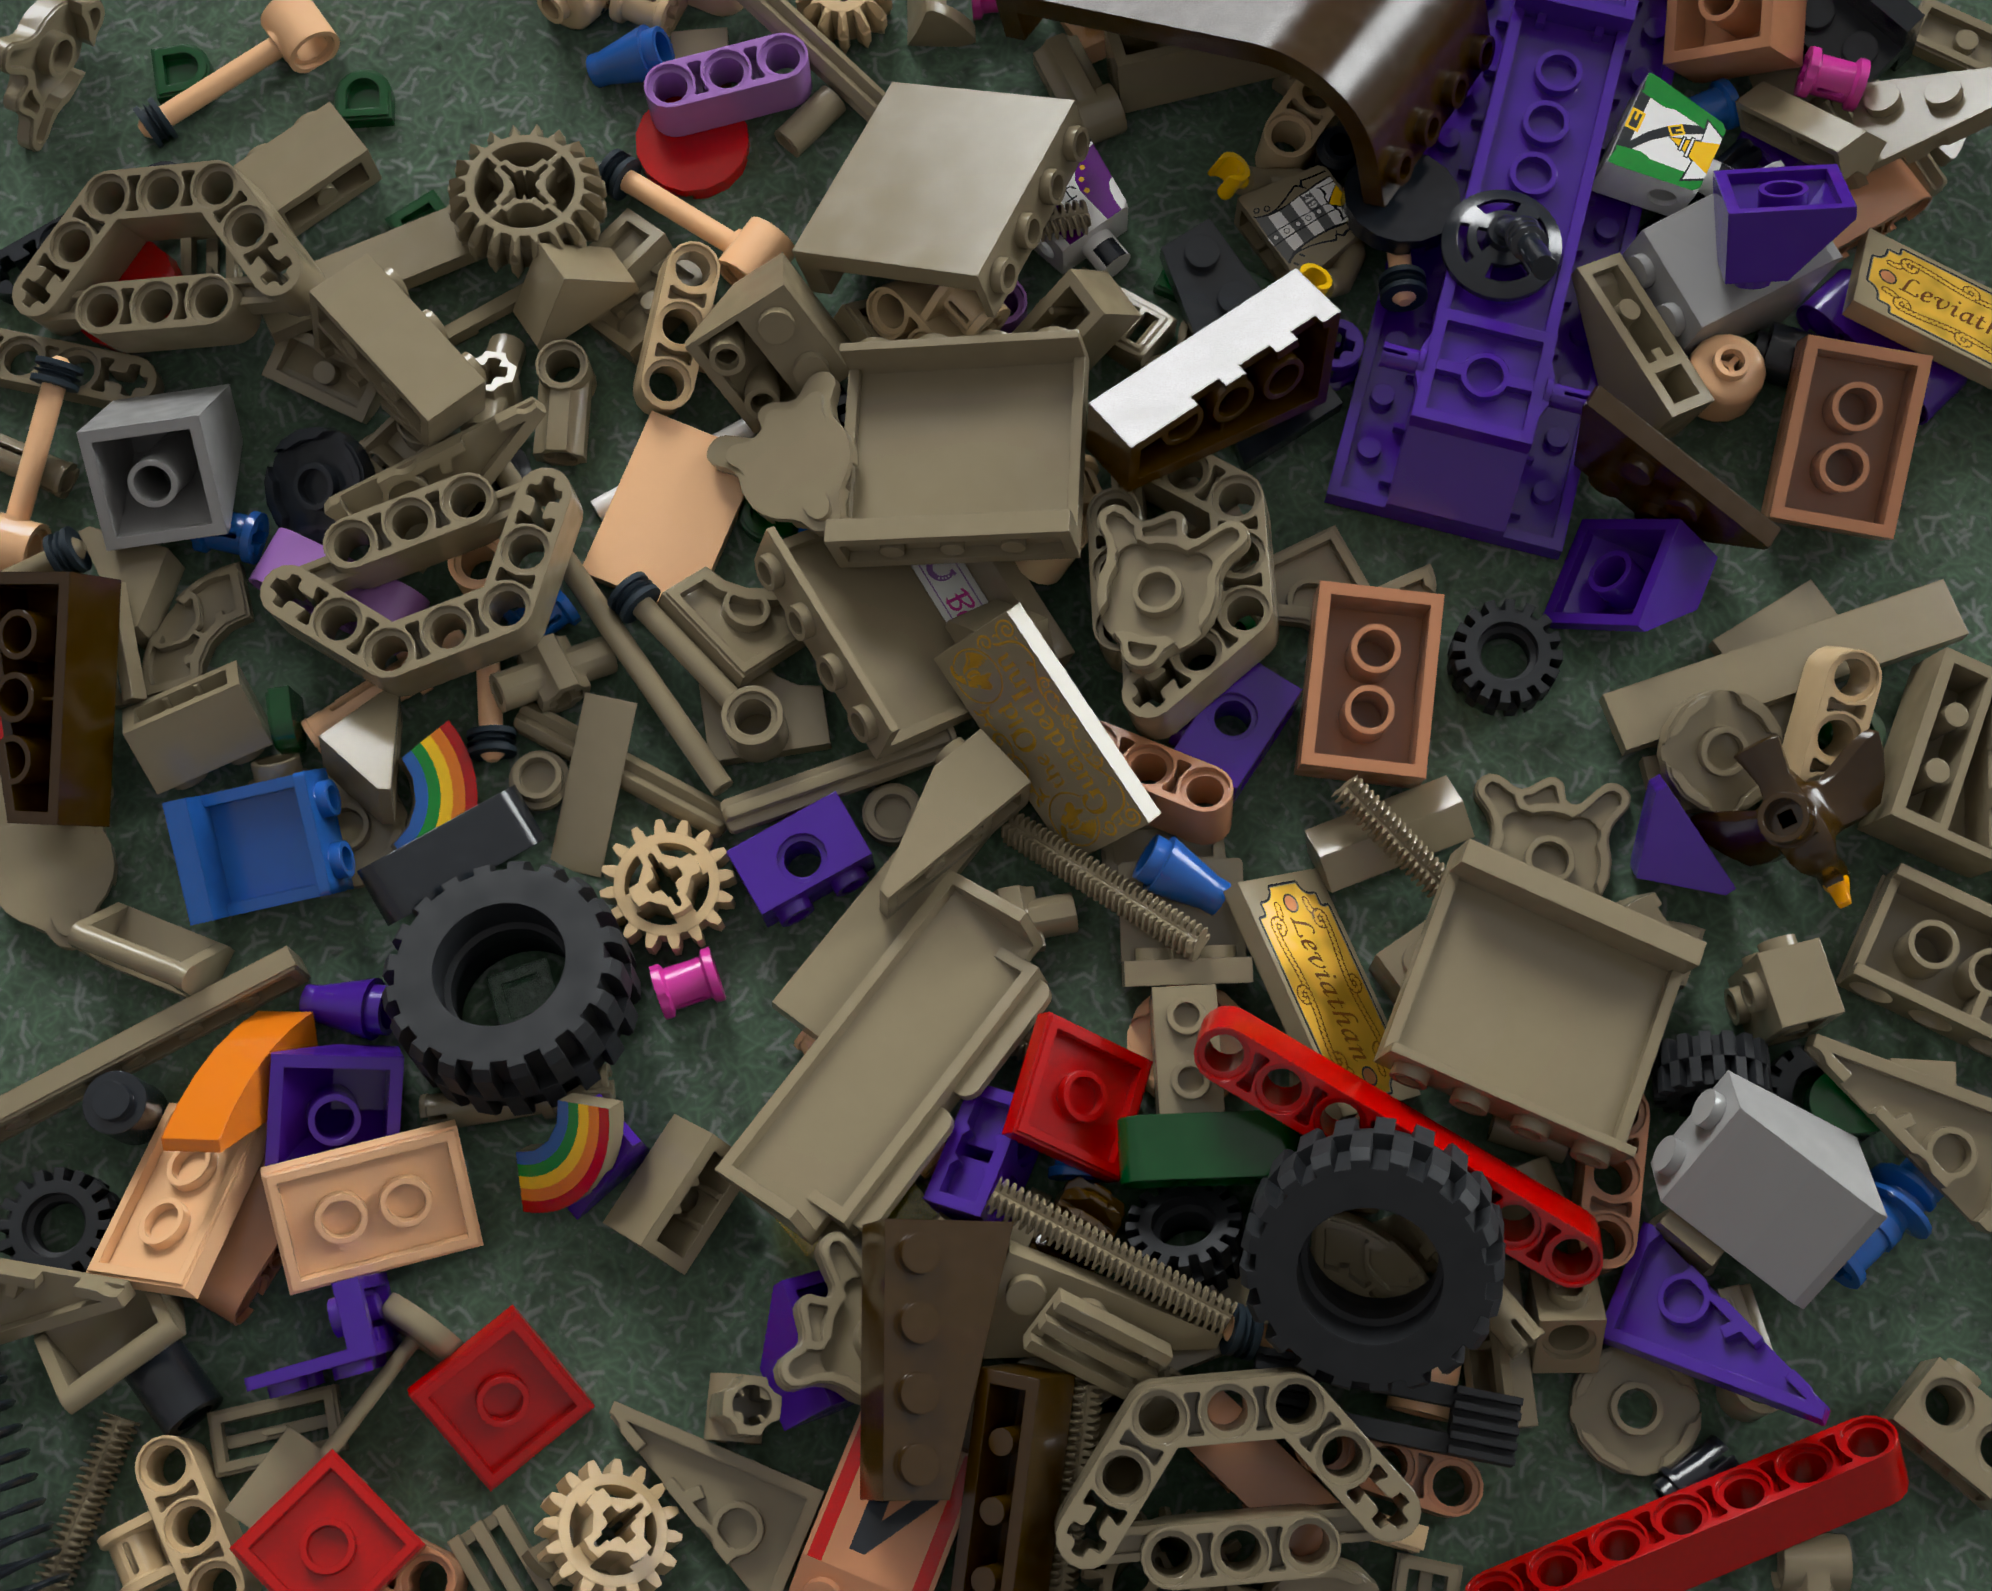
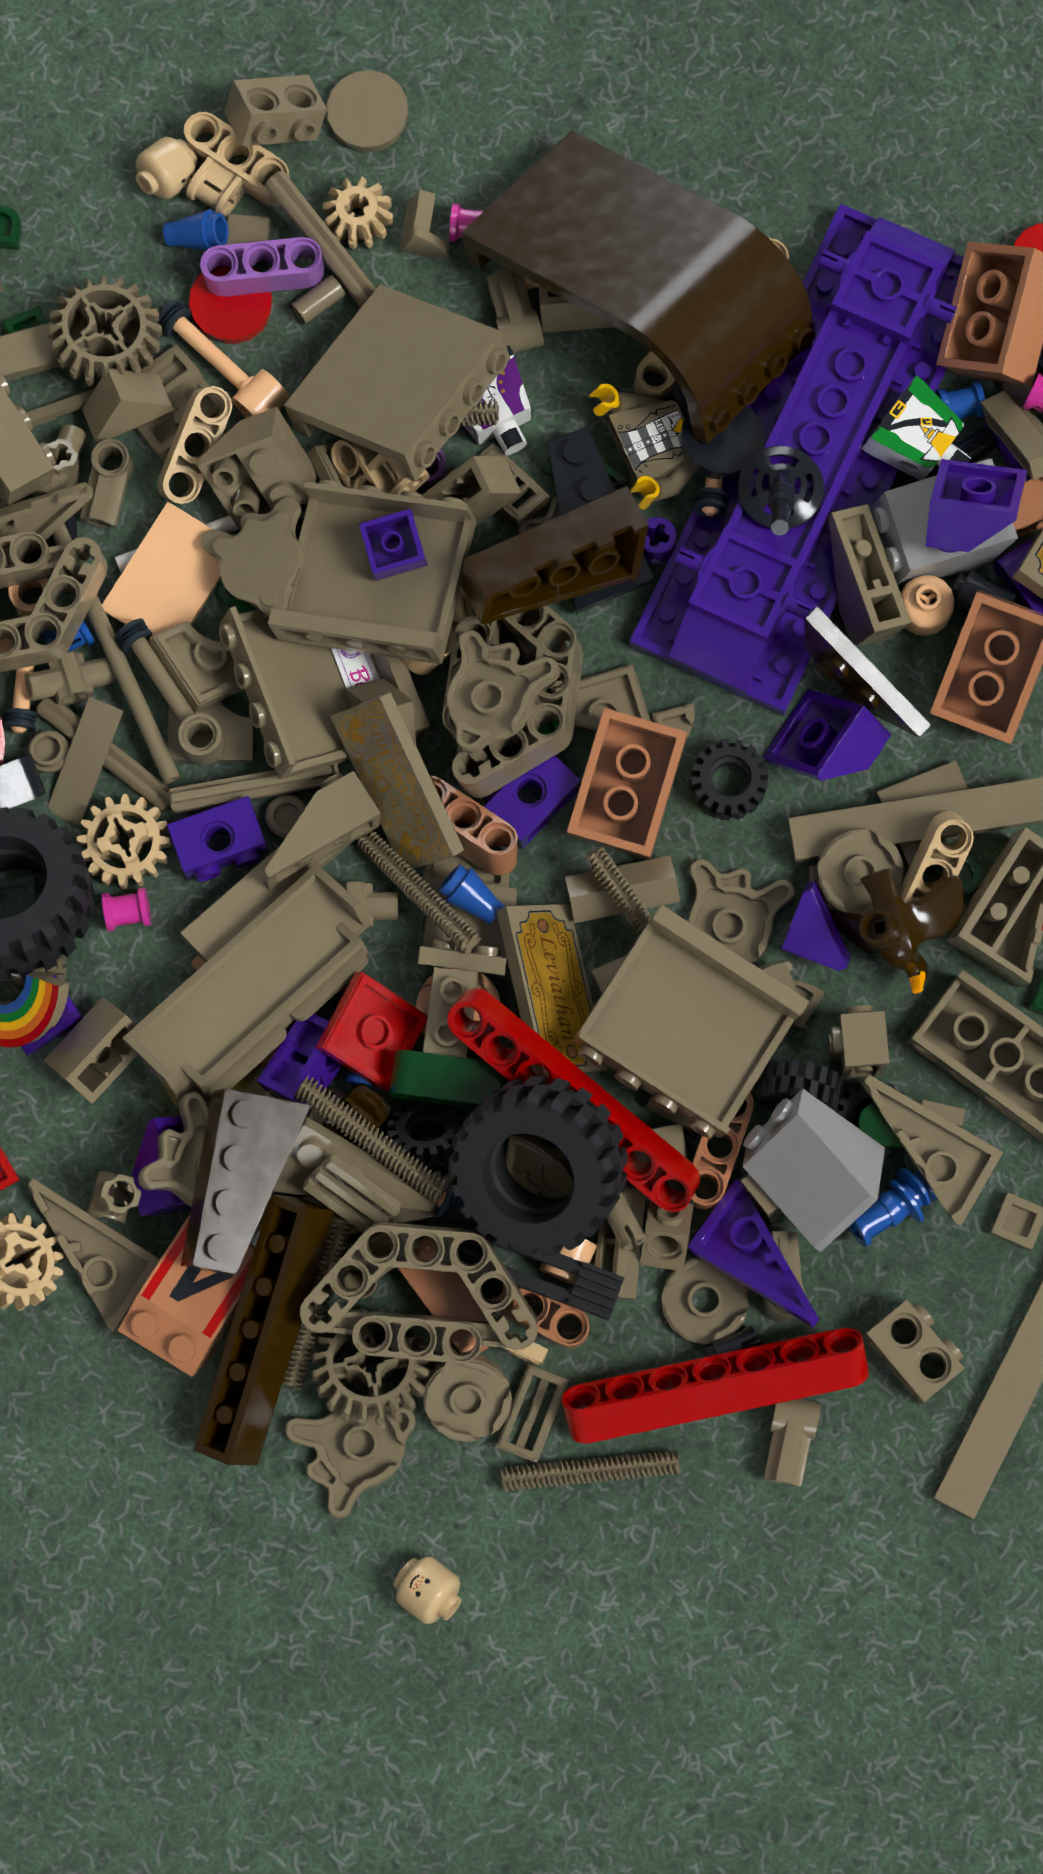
camera: 10 degrees right, 5 degrees up
(981, 405) = (393, 544): none -> dark purple piece

